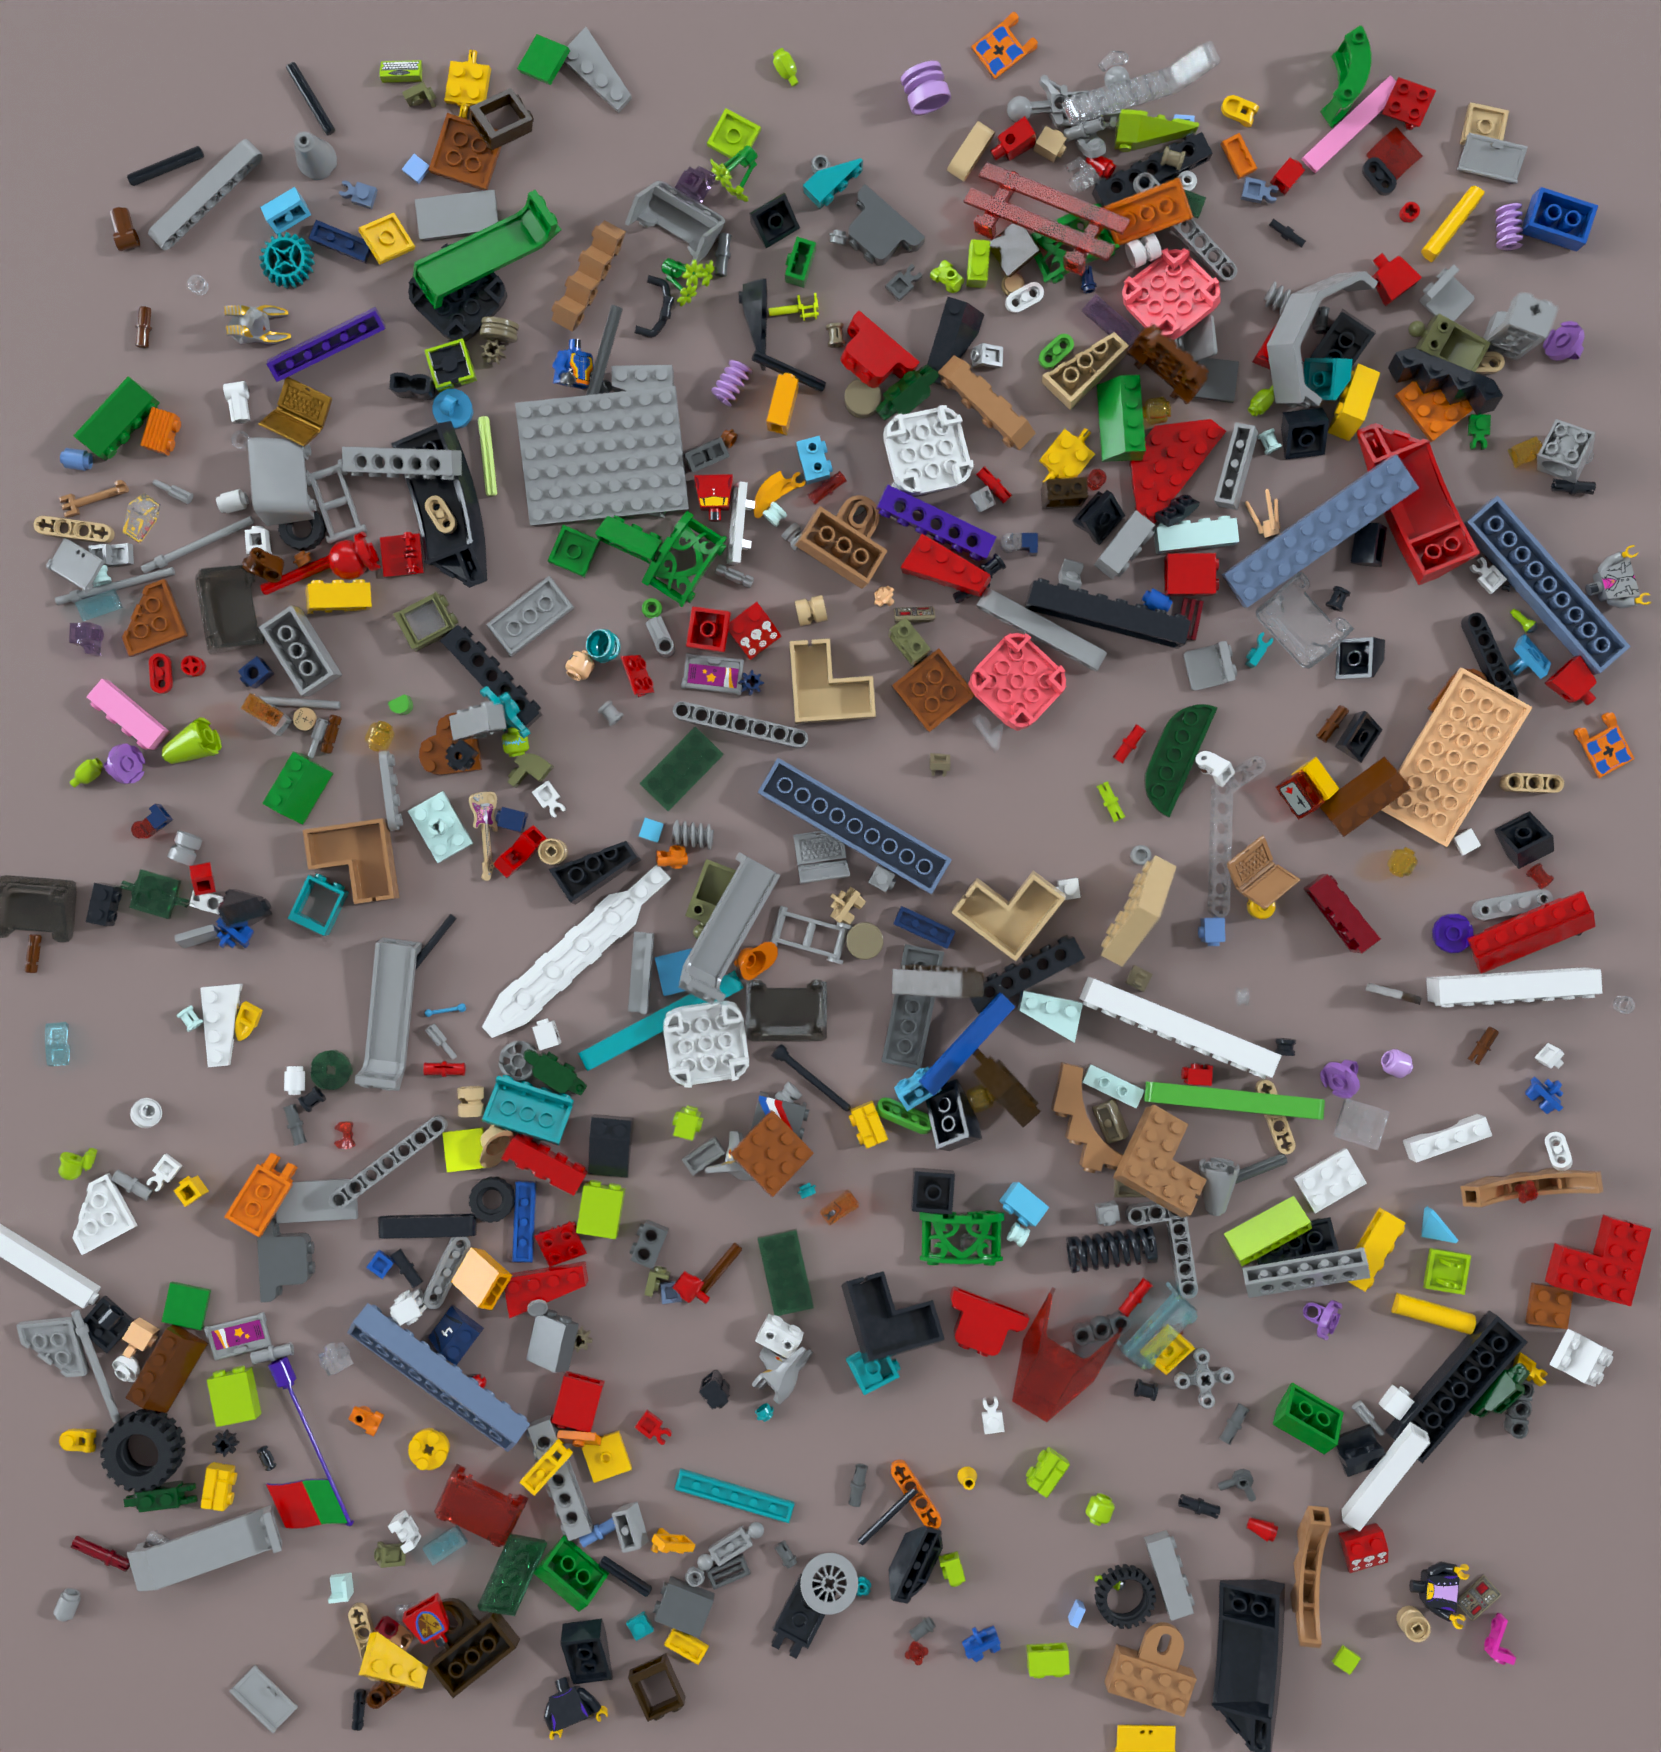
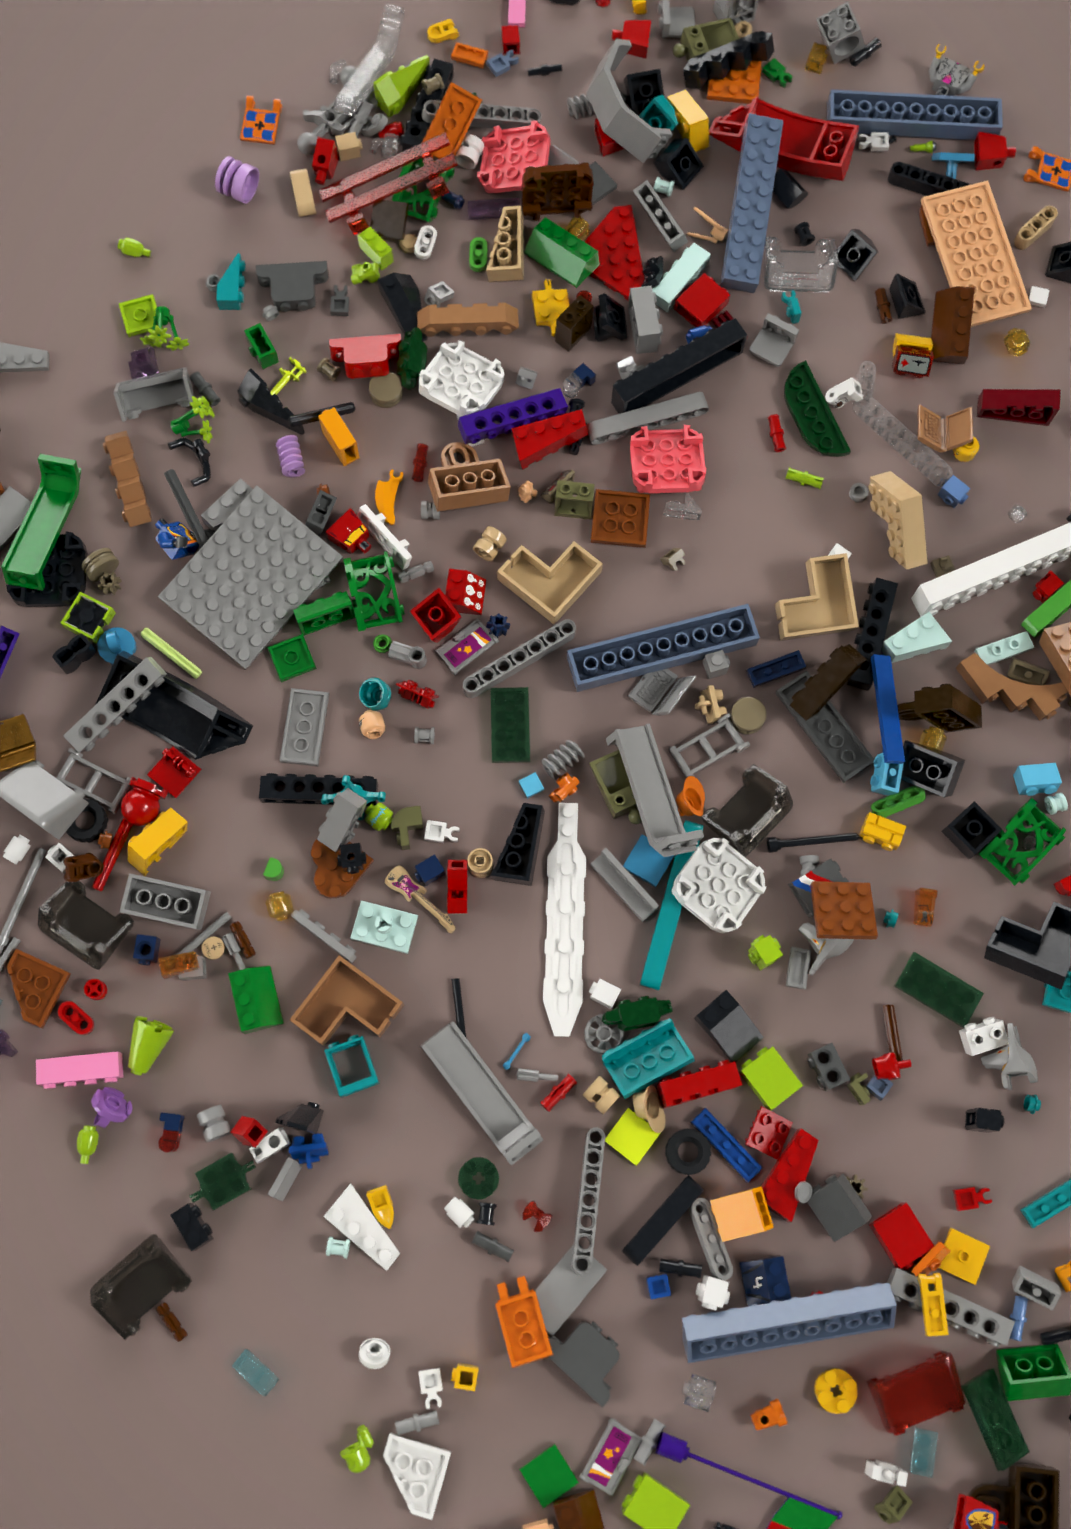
camera: 45 degrees left, 15 degrees down
(426, 621) = (236, 796): window -> none
(441, 515) = (177, 718): tan plate -> none
(774, 220) = (218, 339): black slope -> none
(774, 514) = (402, 509): light aqua wheel -> none
(814, 459) = (393, 452): medium azure brick -> none
(994, 484) = (530, 363): red pin -> none
(1261, 401) = (634, 169): lime plant -> none

